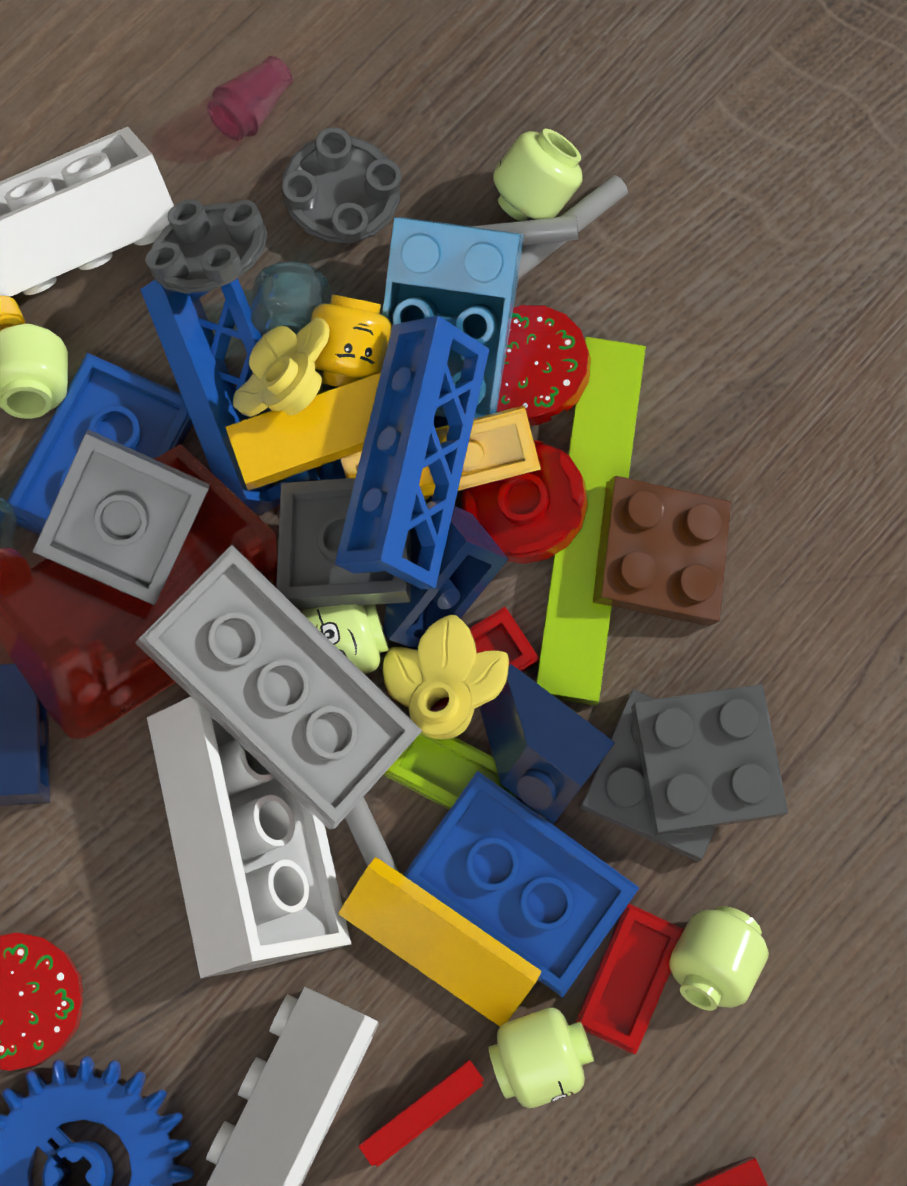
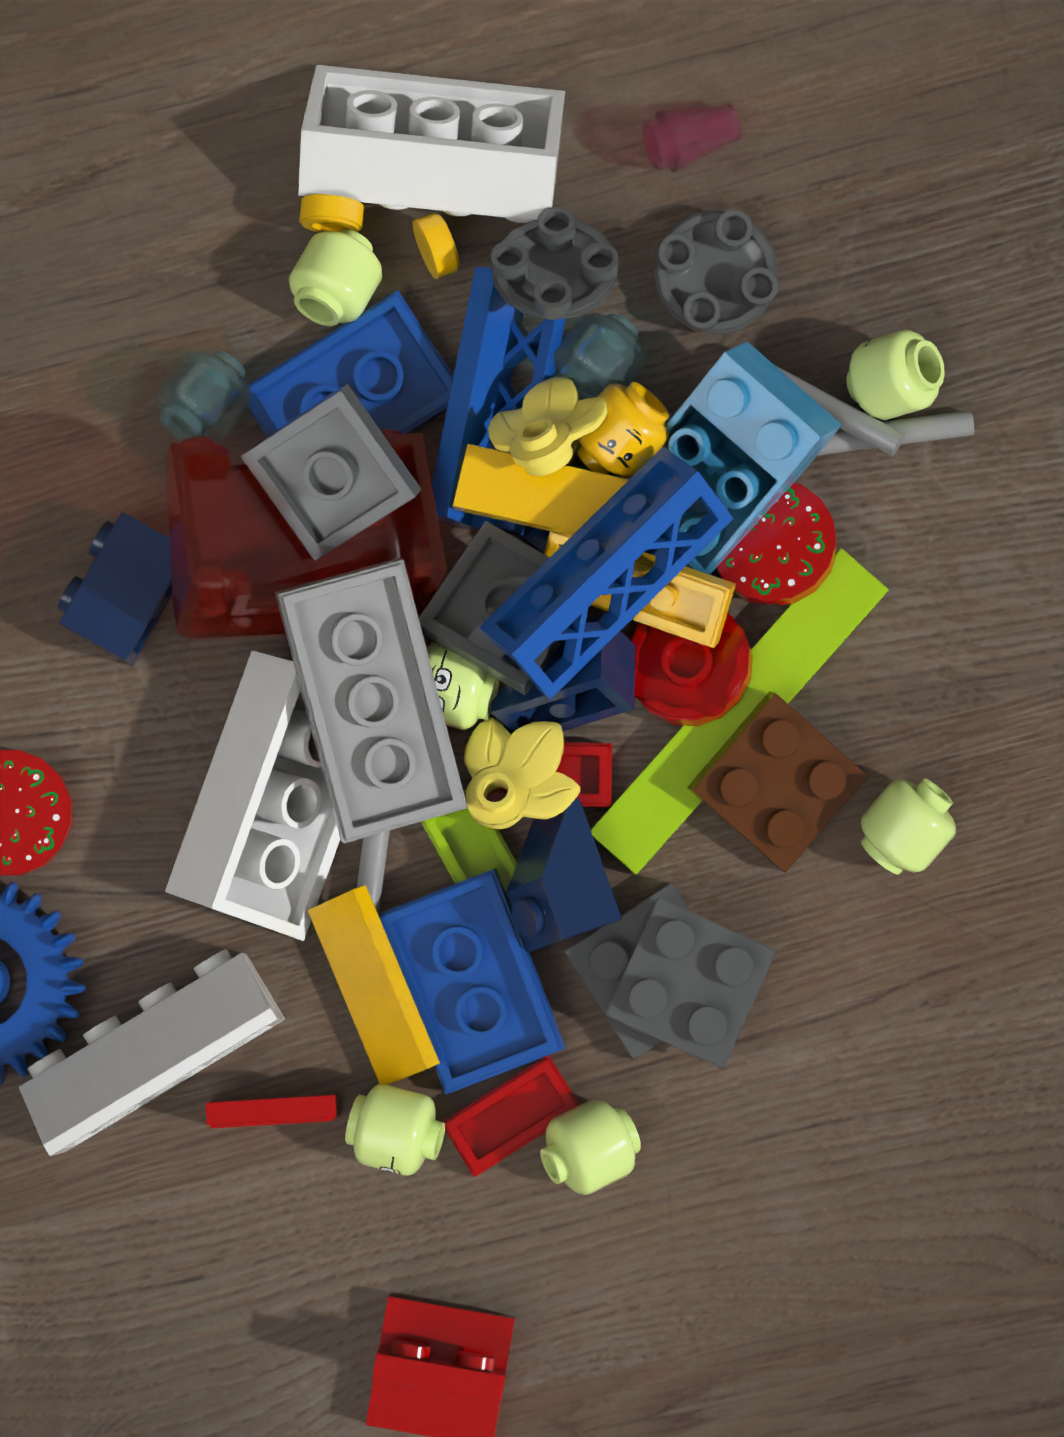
camera: 40 degrees right, 10 degrees up
(96, 297) = (436, 245): none -> yellow tile
(792, 517) = (908, 825): none -> yellowish green head

